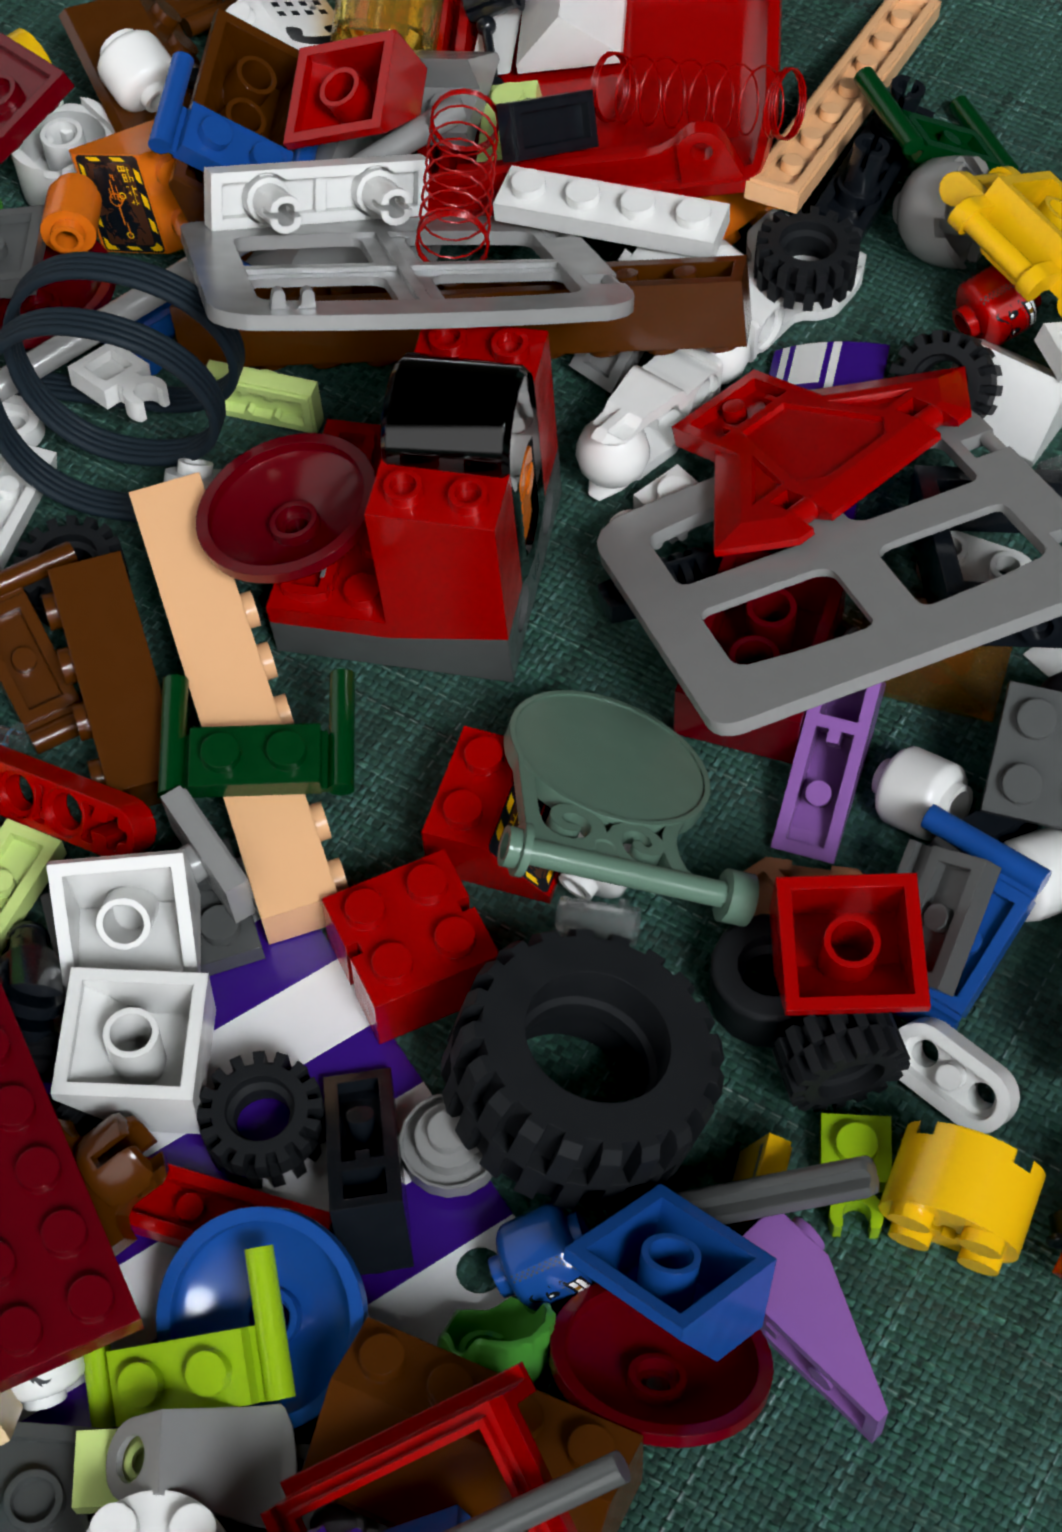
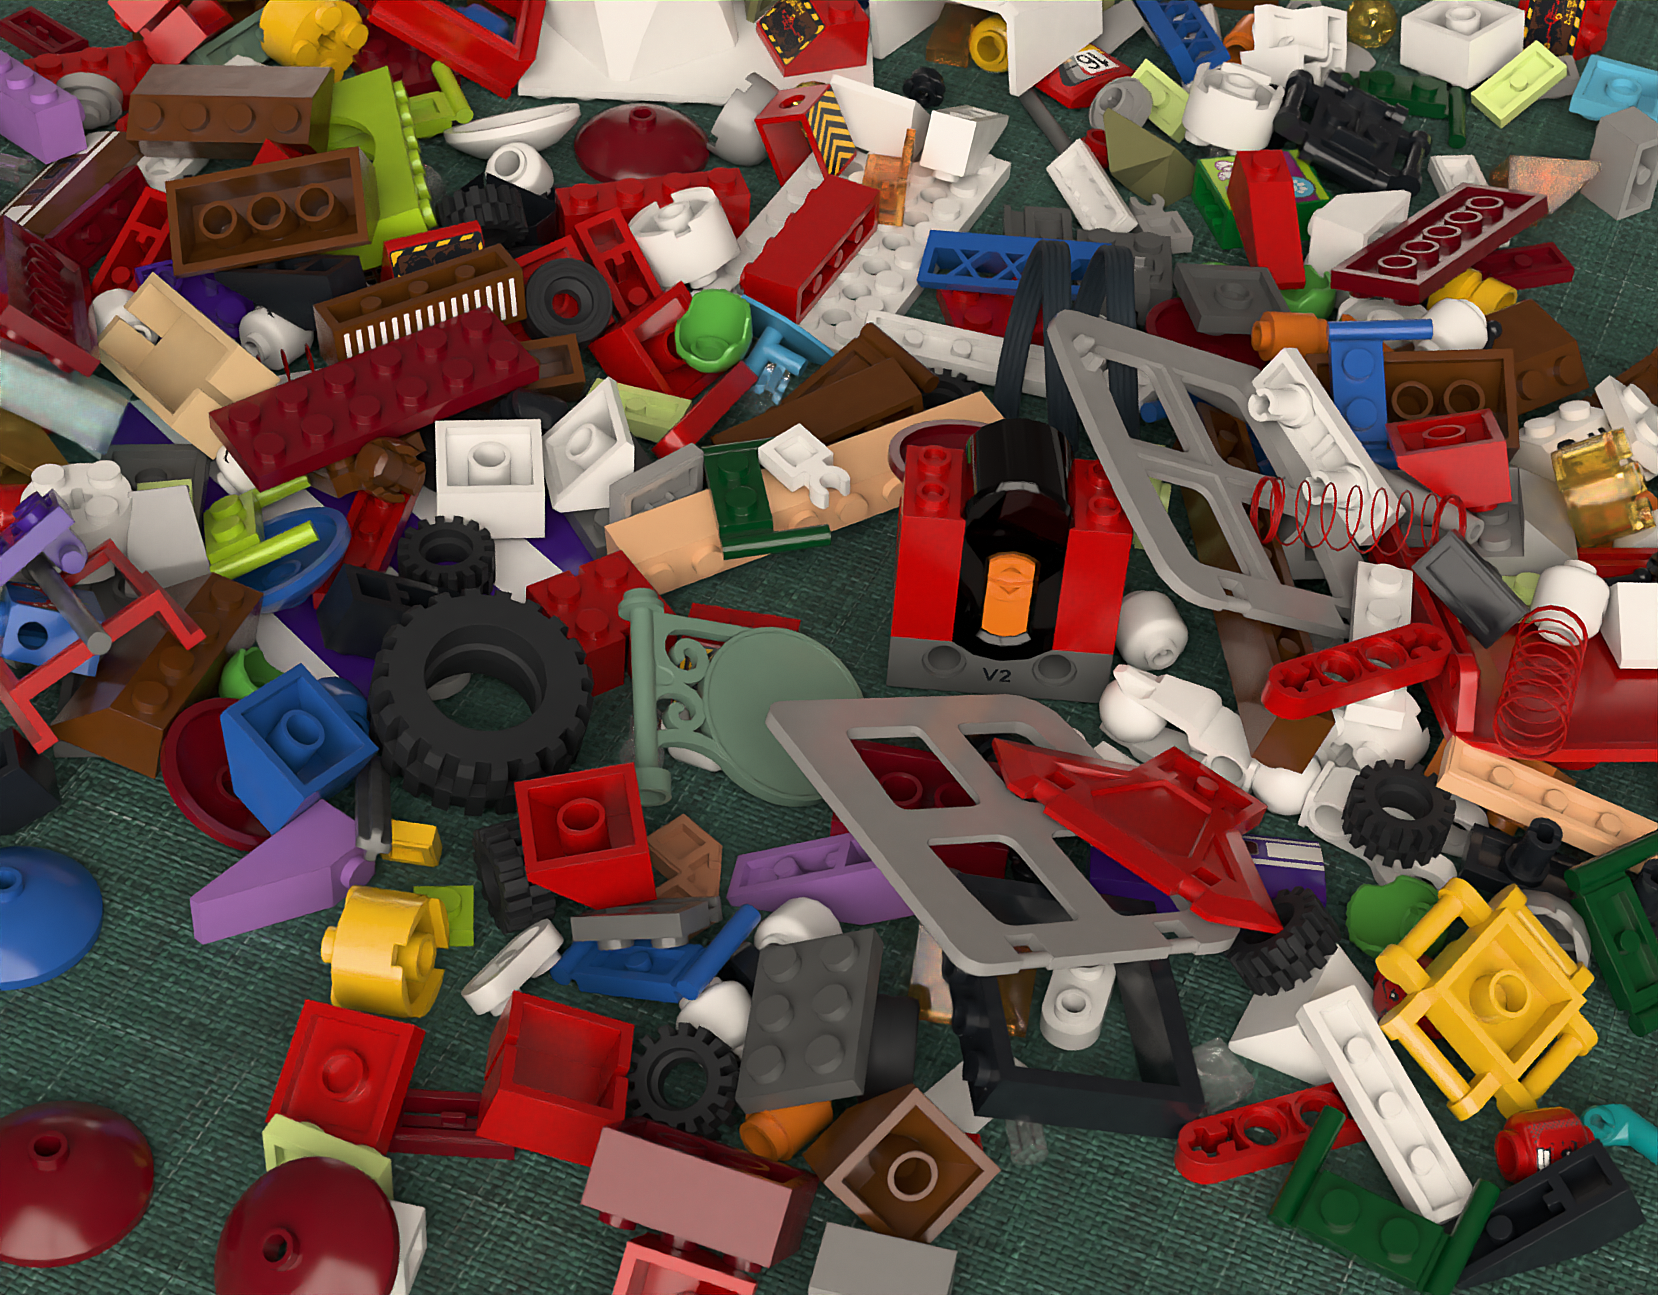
camera: 75 degrees right, 15 degrees down
(230, 684) = (803, 460): none -> white plate
(555, 62) = (1576, 589): none -> white head
(687, 218) = (1301, 690): none -> red beam
(906, 297) = (1388, 913): none -> bright green hair

